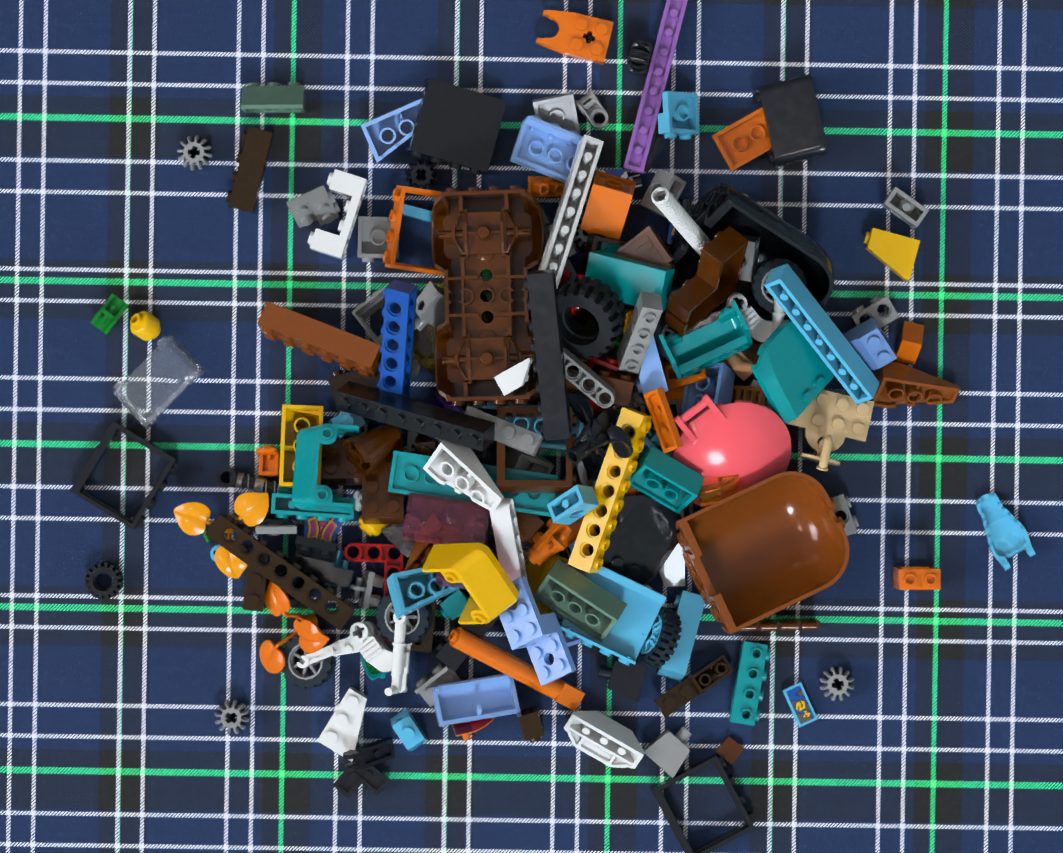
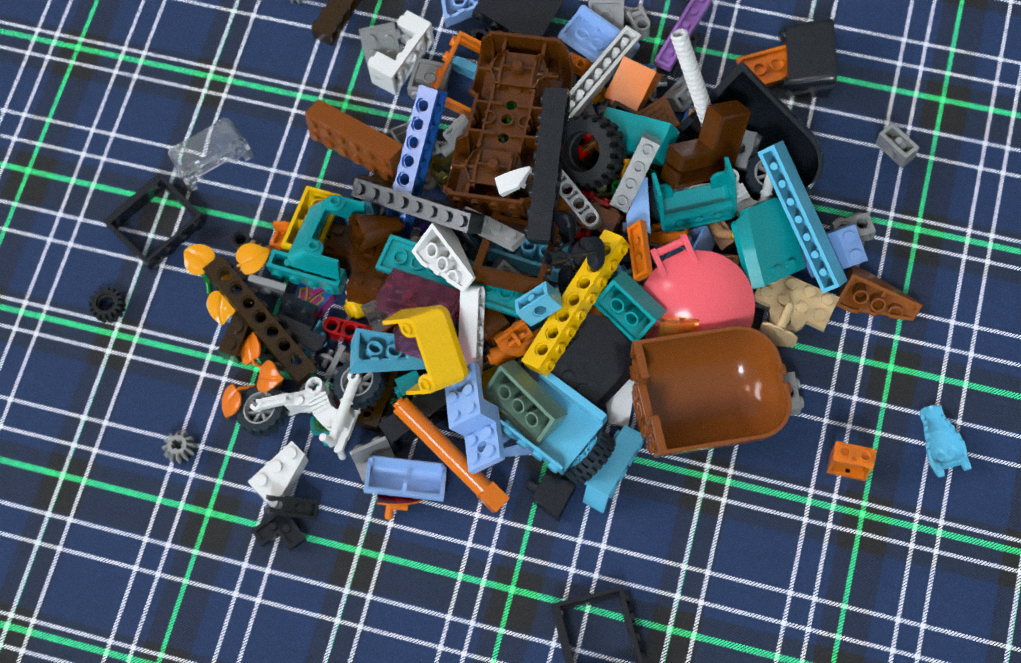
camera: 25 degrees right, 20 degrees down
(109, 314) = (186, 92): green hips -> none
(145, 325) = (212, 107): yellow head -> none
(408, 730) = (336, 495): medium azure torso -> none
(531, 724) = (450, 509): dark brown brick -> none
(604, 739) = (515, 546): white wedge -> none
(669, 750) = (577, 572): light grey torso -> none
(679, 115) = (711, 34): medium azure plate -> none
(693, 685) = (615, 517): dark brown slope -> none
(730, 750) = (636, 588): reddish brown tile -> none
(748, 682) = (668, 525): teal brick -> none
(784, 624) = (707, 475): reddish brown hinge -> none
(799, 704) = (714, 560): tile -> none
(832, 689) = (759, 542): light grey gear -> none
(893, 251) = (879, 179): yellow slope -> none
(909, 342) = (881, 260): orange slope -> none

